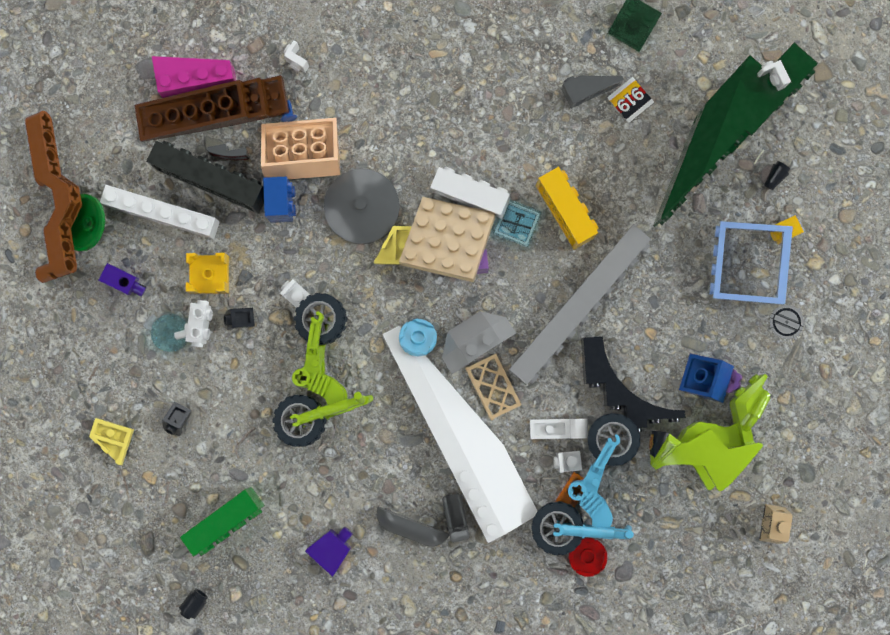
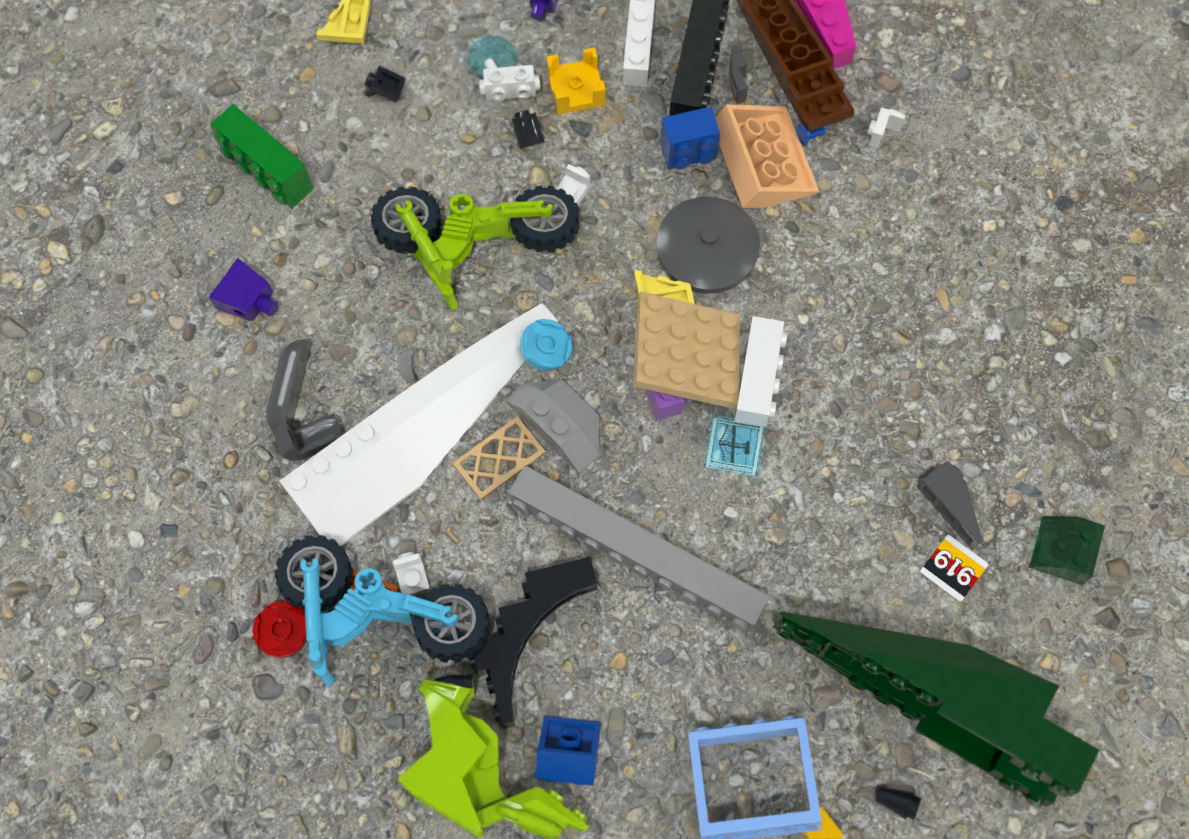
camera: 80 degrees right, 15 degrees down
(193, 604) = (154, 148): black brick -> none
(558, 428) = (455, 549): white plate -> none
(566, 207) = (769, 498): yellow brick -> none
(734, 383) = (570, 791): medium lavender plant -> none
(777, 72) = (1037, 728): white bracket -> none

